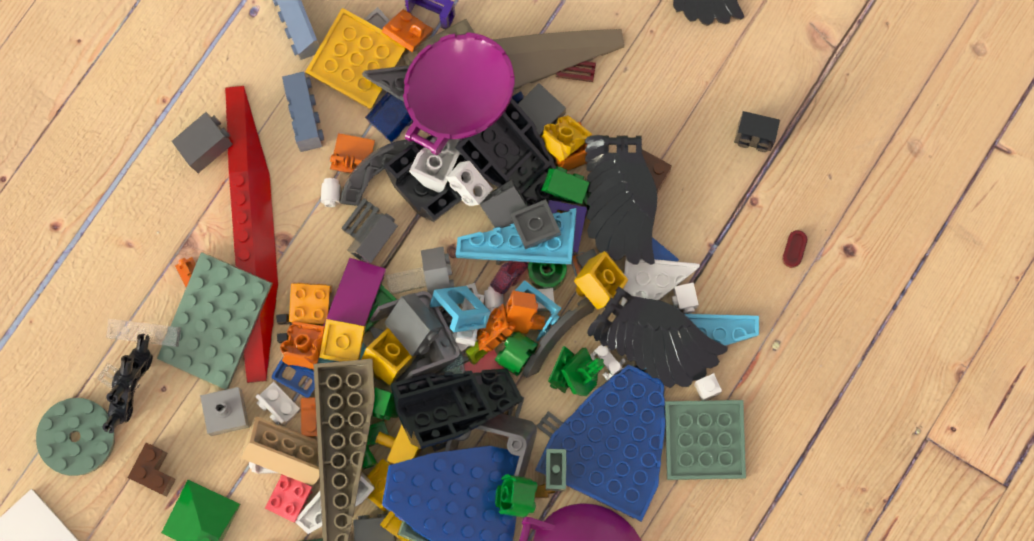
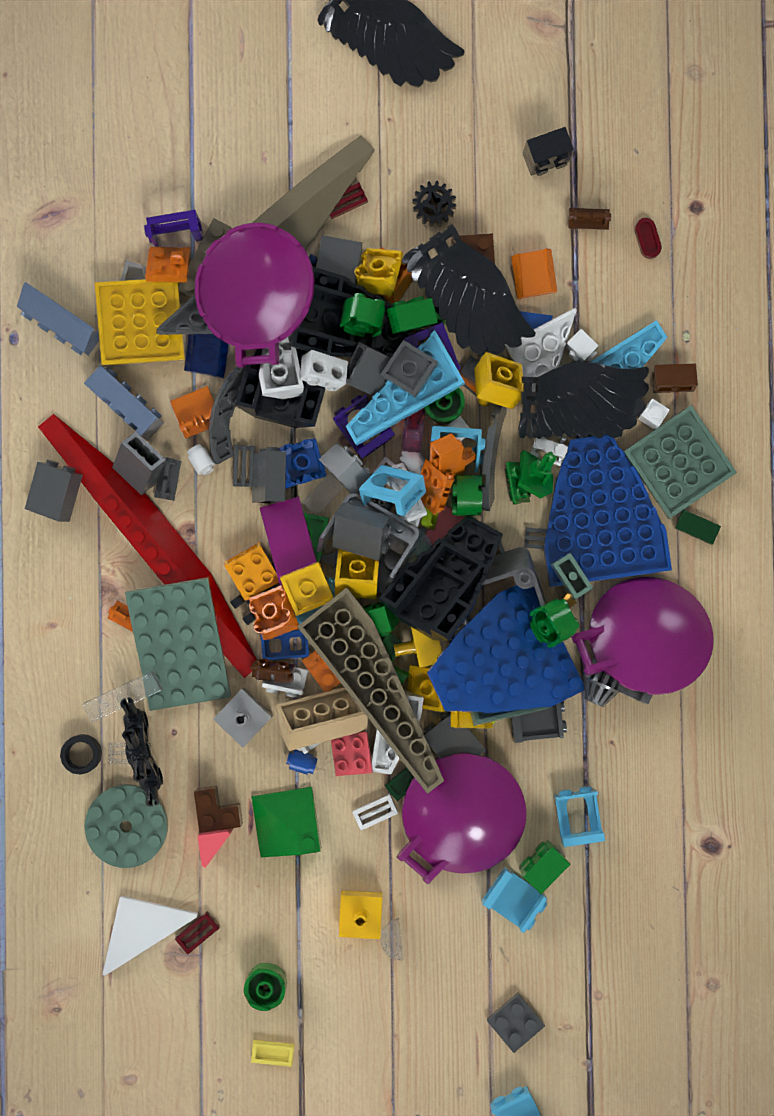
camera: 35 degrees left, 10 degrees up
(65, 356) = (67, 763): none -> black tyre
(130, 493) = (210, 843): none -> coral slope
(245, 478) = (301, 762): none -> blue brick
(266, 384) = (281, 670): none -> reddish brown hinge
(280, 162) = (138, 463): none -> dark grey brick
(295, 190) = (168, 479): none -> dark grey hinge
(405, 245) = (302, 462): none -> blue slope
(460, 267) = (341, 421): none -> dark purple panel
(527, 161) = (362, 315): none -> green brick
(635, 112) = (426, 206): none -> black gear
(685, 218) = (534, 273): none -> orange slope
(685, 501) = (697, 527): none -> dark green tile
(744, 370) = (674, 378): none -> reddish brown hinge
(757, 204) = (589, 218): none -> reddish brown hinge

